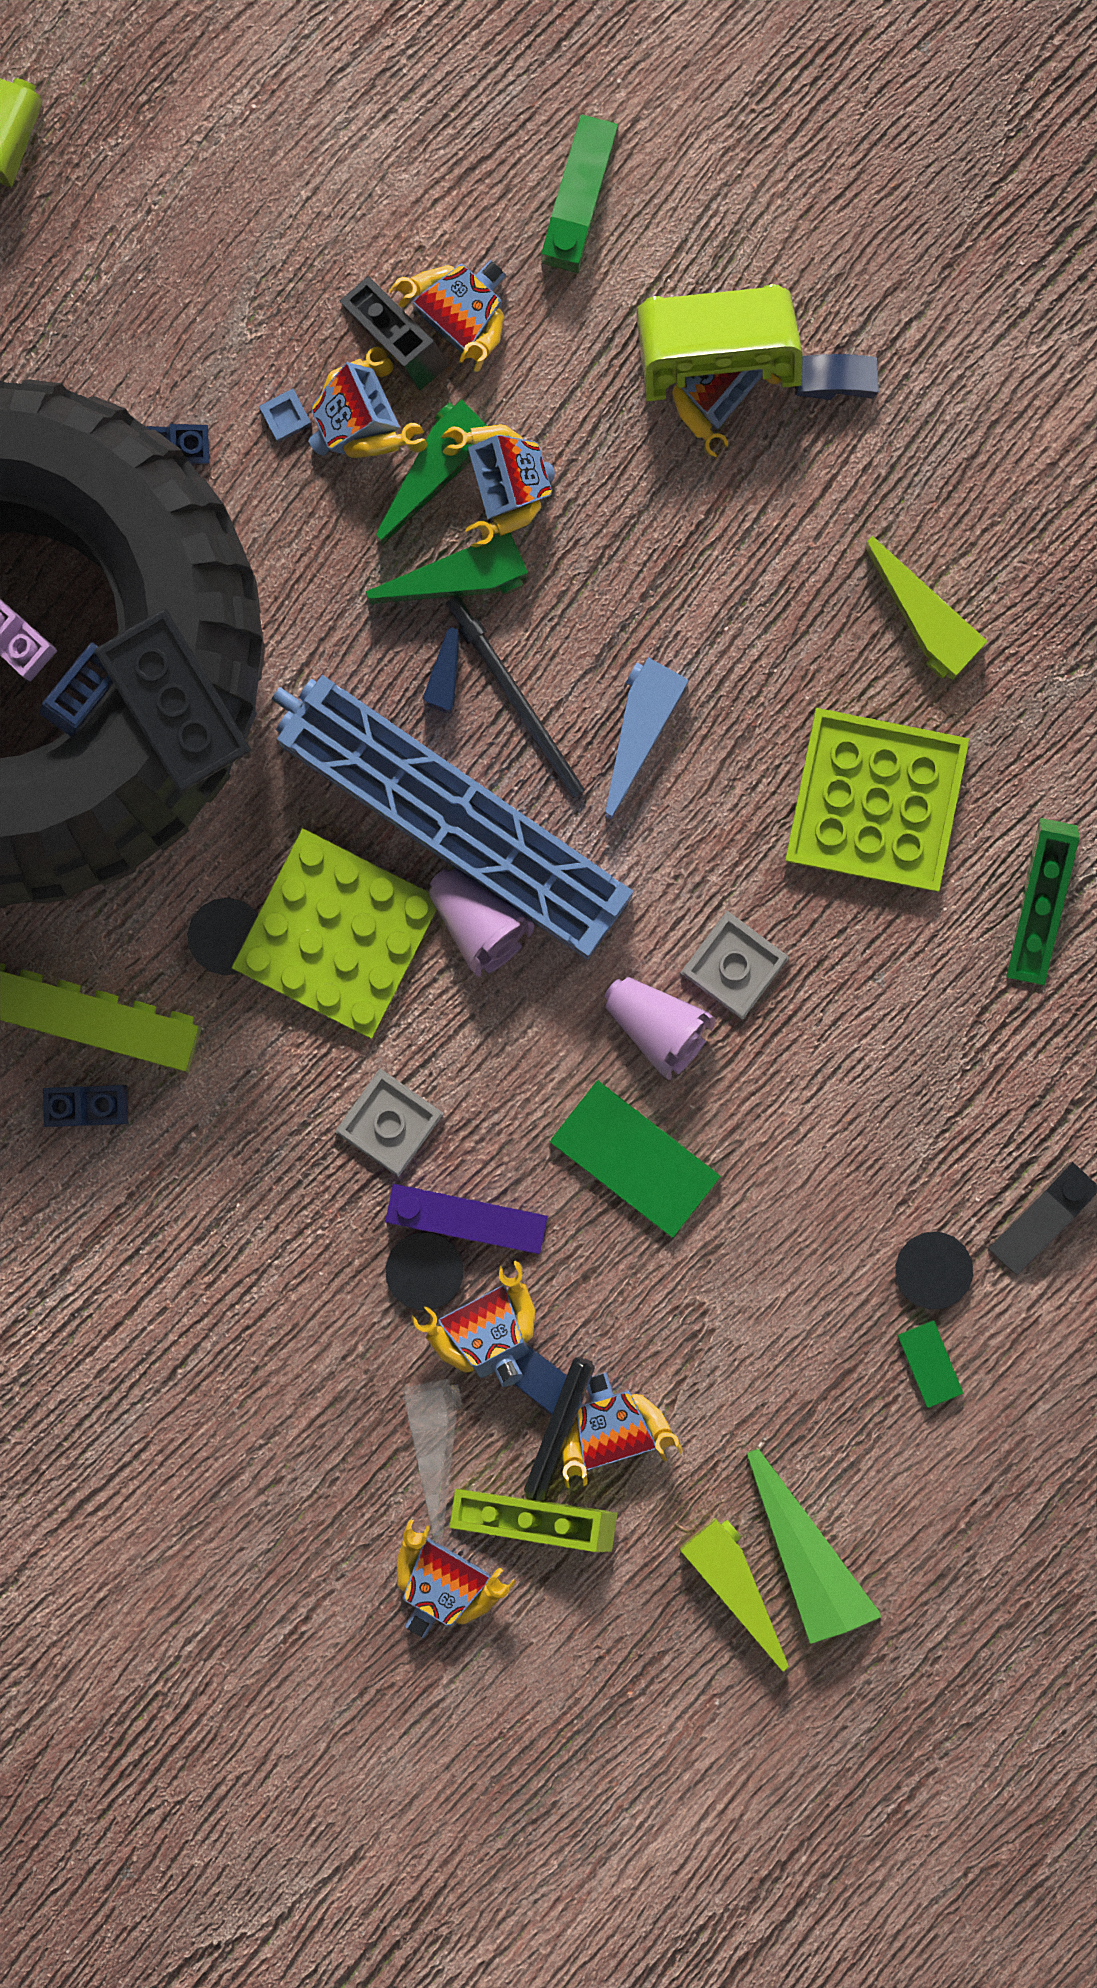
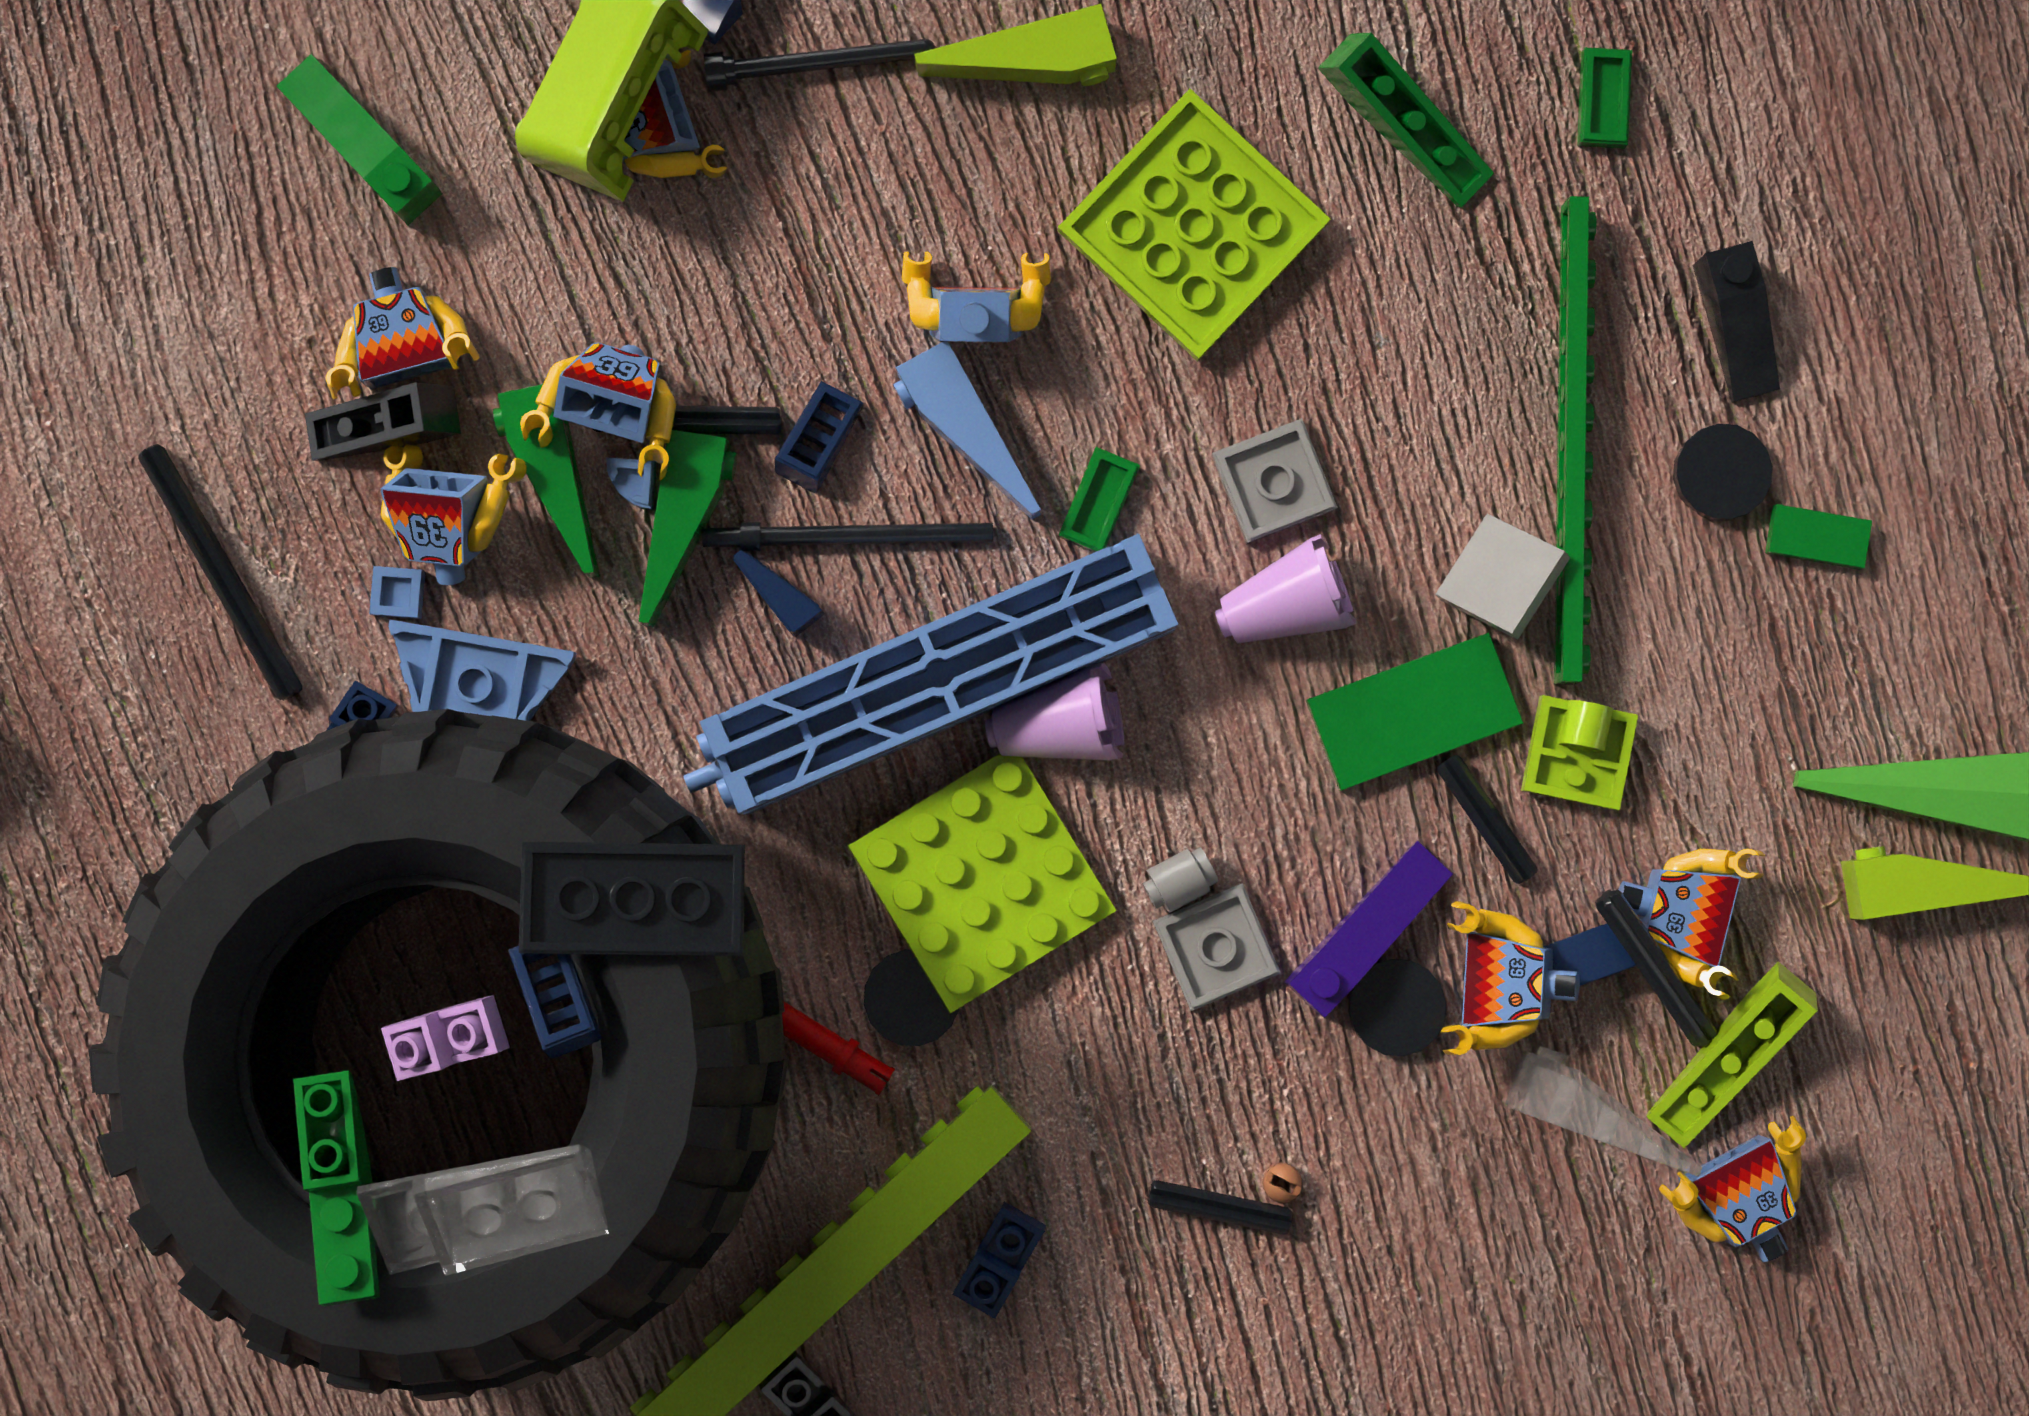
camera: 60 degrees left, 0 degrees up
(158, 904) = (835, 1050): none -> red pin
(213, 1234) = (1220, 1207): none -> black axle
(224, 287) = (220, 572): none -> black axle
(262, 503) = (476, 671): none -> medium blue wing
(265, 1266) = (1287, 1173): none -> nougat hinge
(419, 1068) = (1180, 879): none -> light grey brick
(457, 523) = (630, 484): none -> medium blue tile
(537, 638) = (799, 472): none -> dark blue slope
(543, 565) = (727, 420): none -> black axle
(591, 1254) = (1487, 819): none -> black axle
(646, 853) = (1099, 500): none -> green tile
(676, 1289) = (1579, 752): none -> lime plate
(722, 689) = (975, 312): none -> torso
(764, 1160) = (1502, 576): none -> light grey tile
(782, 413) = (725, 70): none -> black piece
(904, 1145) = (1574, 420): none -> green plate

